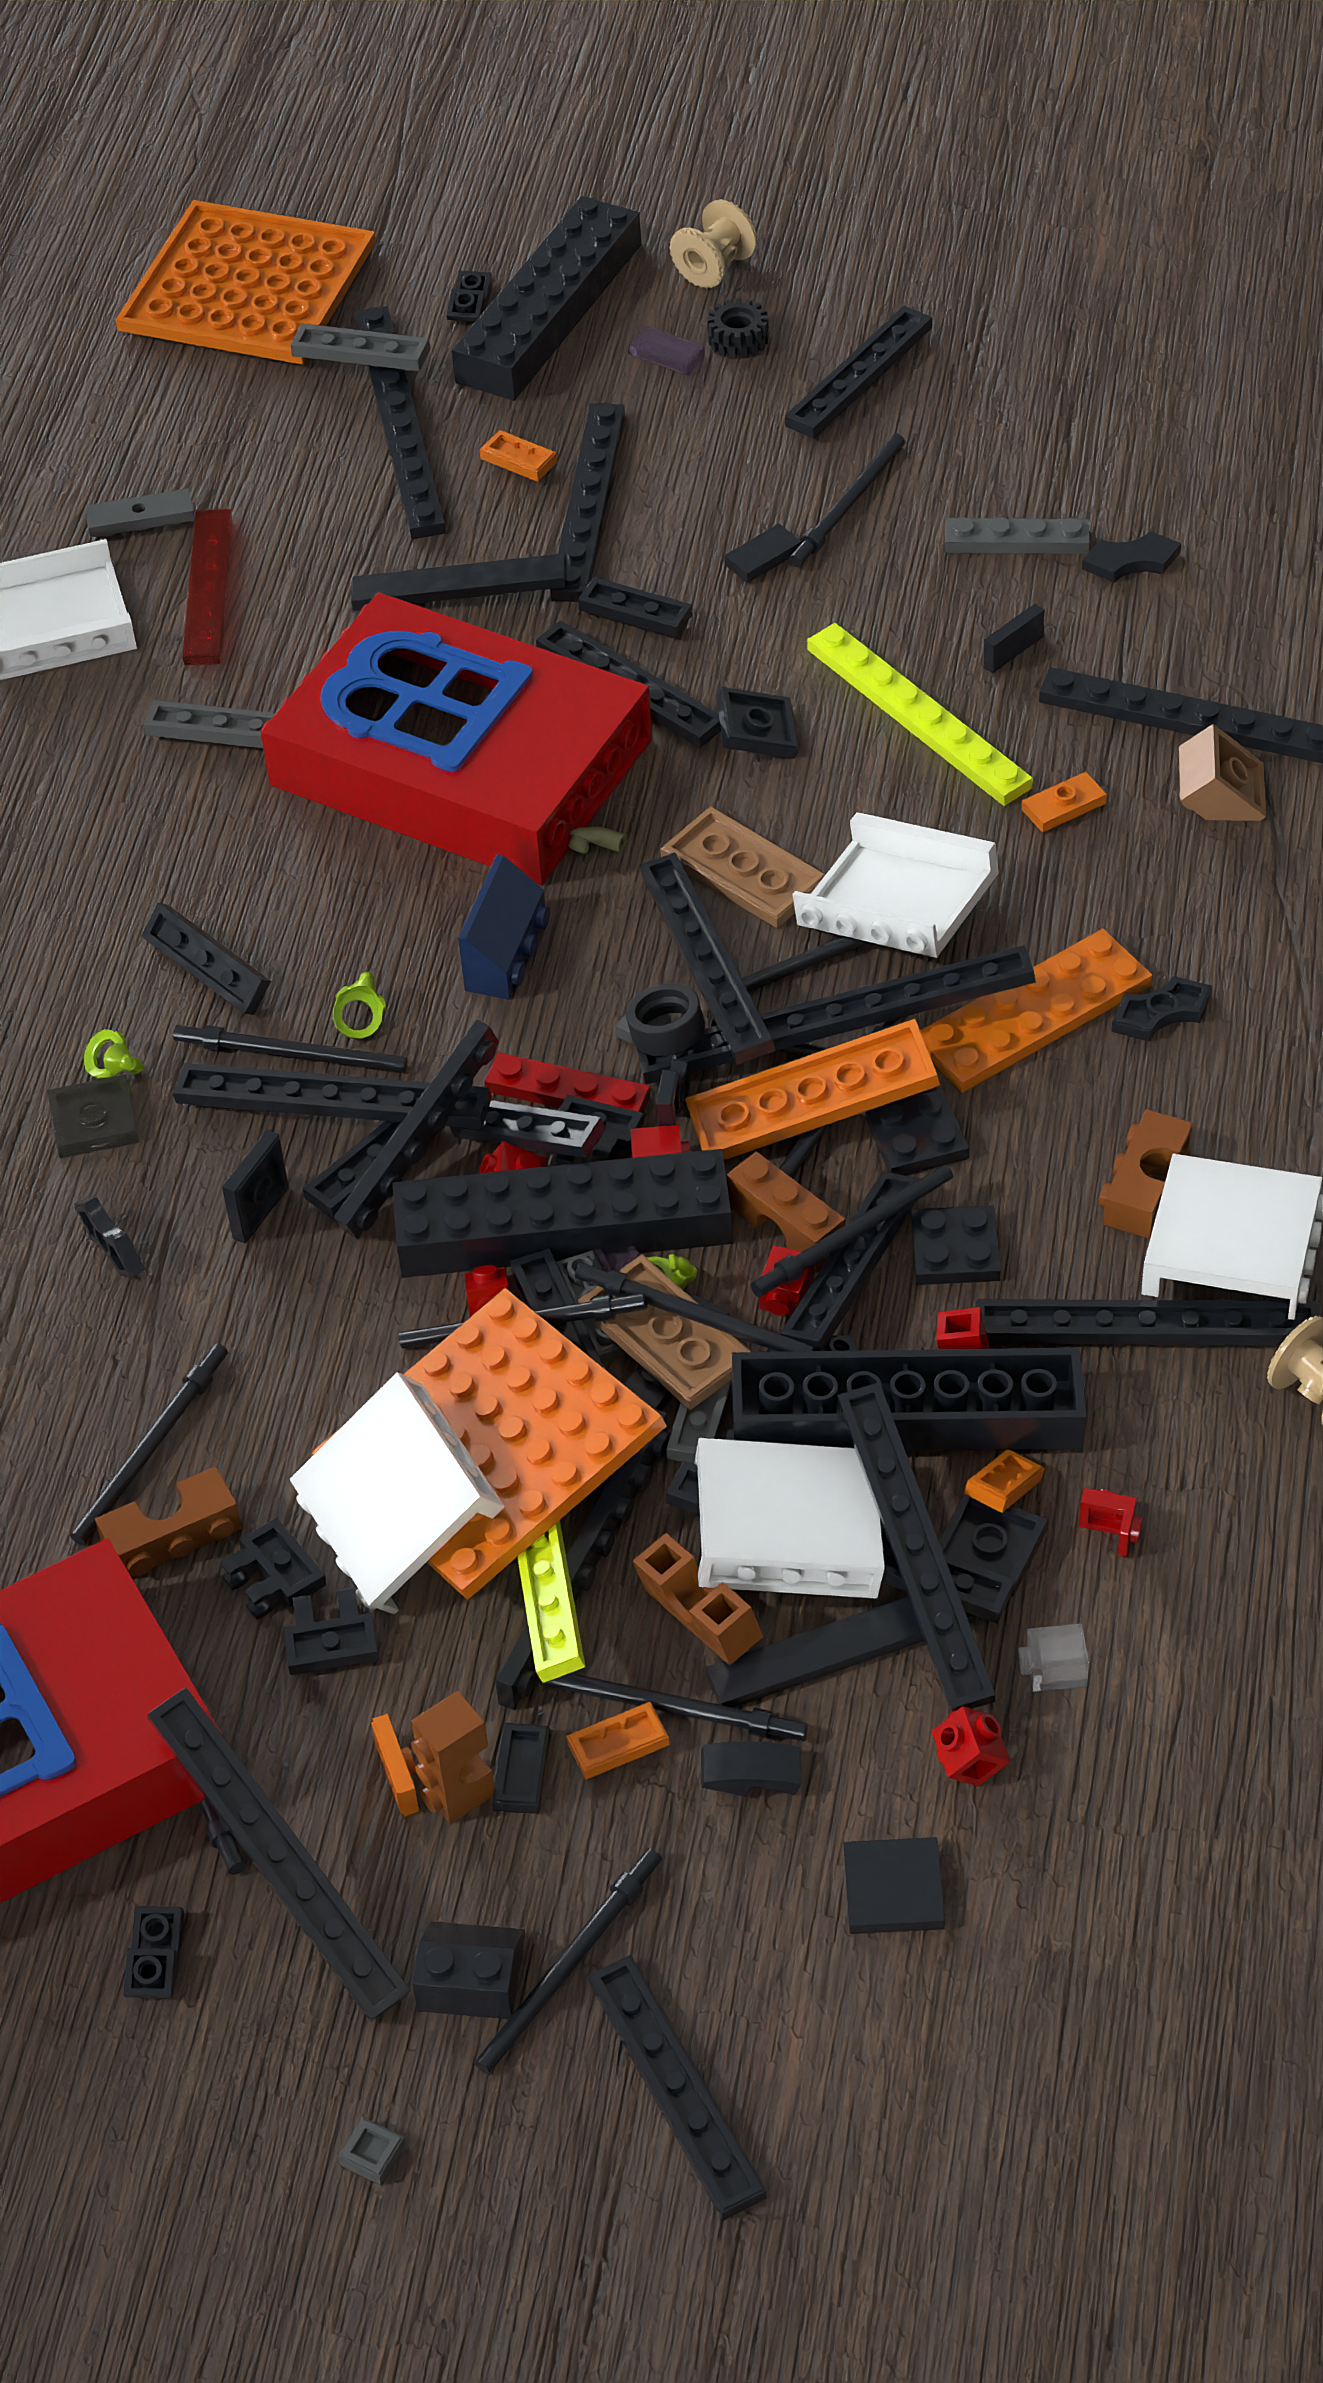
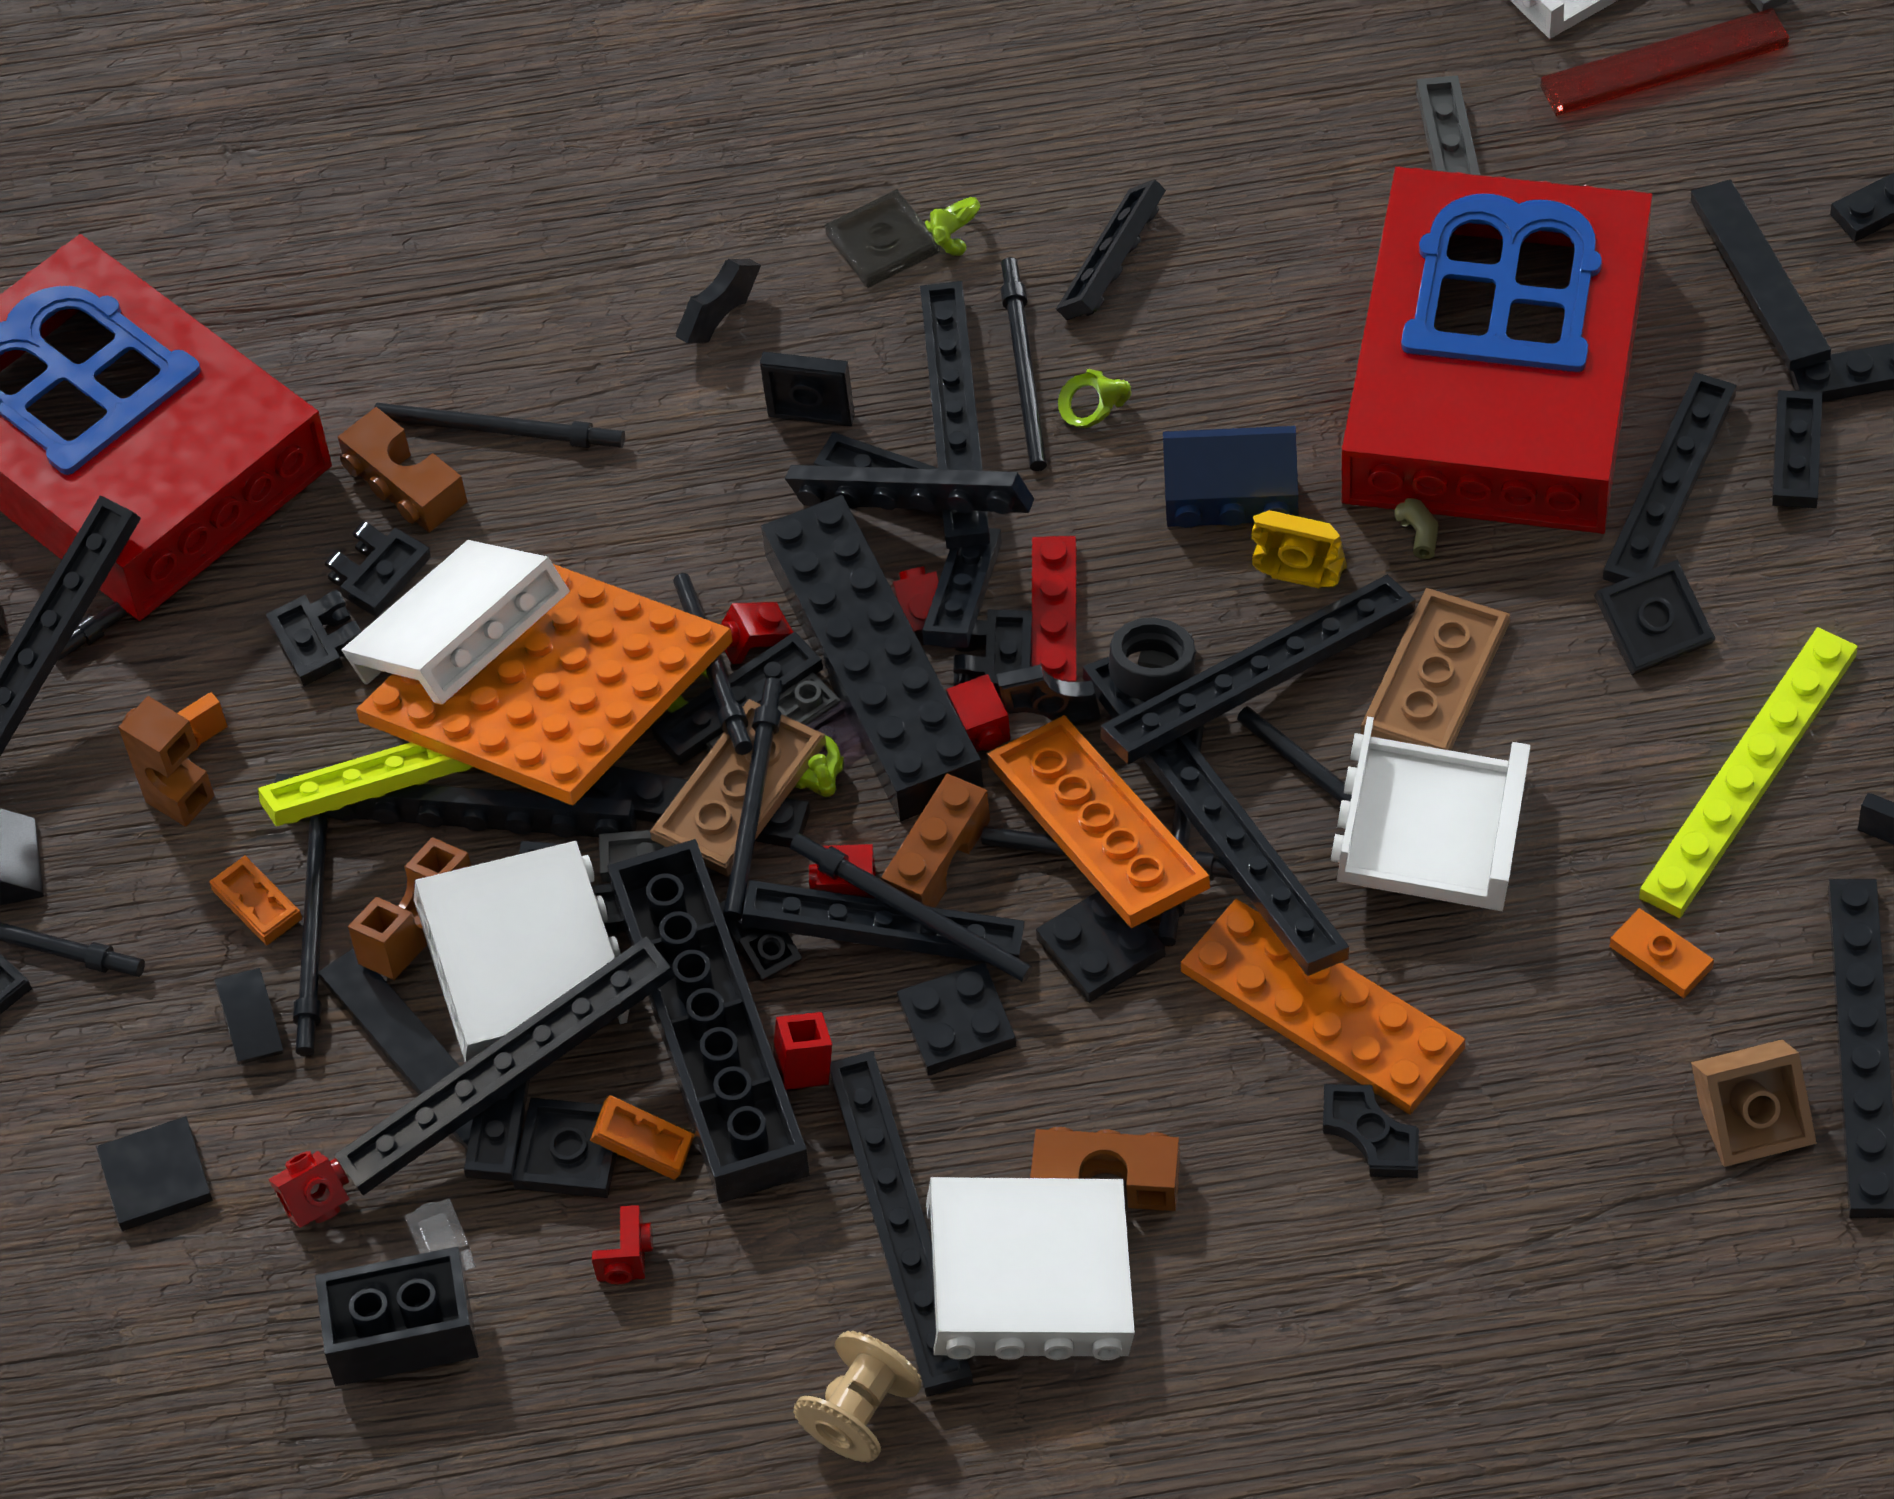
camera: 75 degrees right, 5 degrees up
(521, 1768) = (213, 836): black tile -> none
(596, 905) = (1297, 549): none -> yellow slope
(1134, 1697) = (396, 1316): none -> black slope

